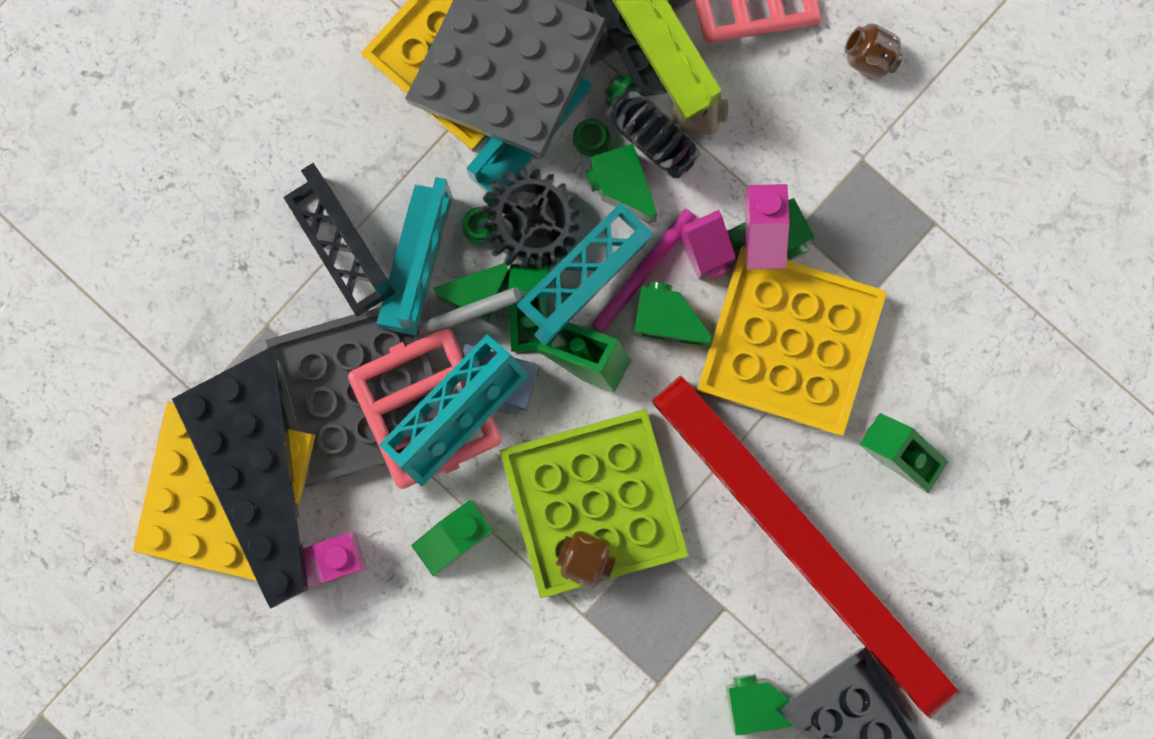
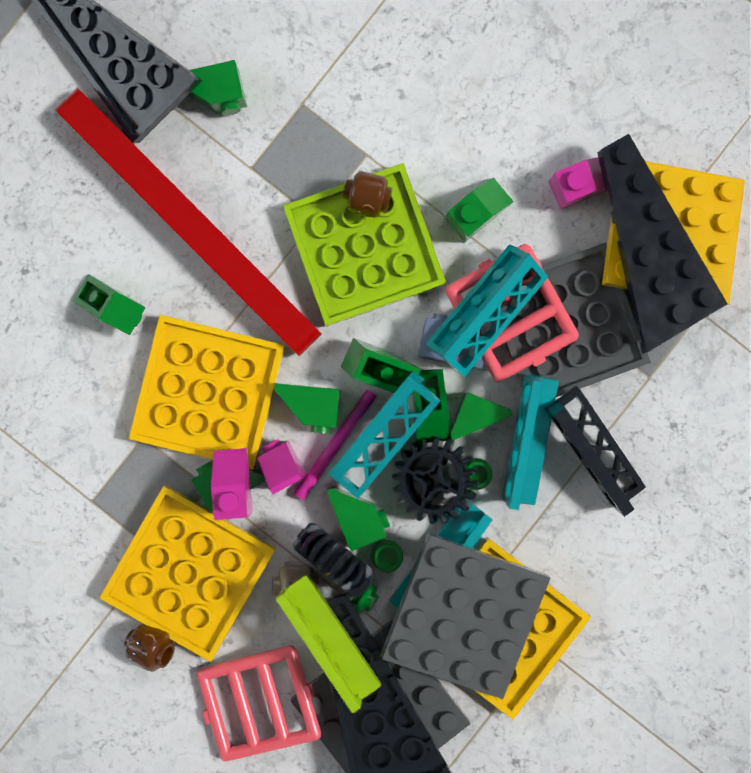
camera: 175 degrees right, 5 degrees up
(470, 311) = (479, 395): light grey bar -> none
(825, 132) = (187, 573): none -> yellow plate

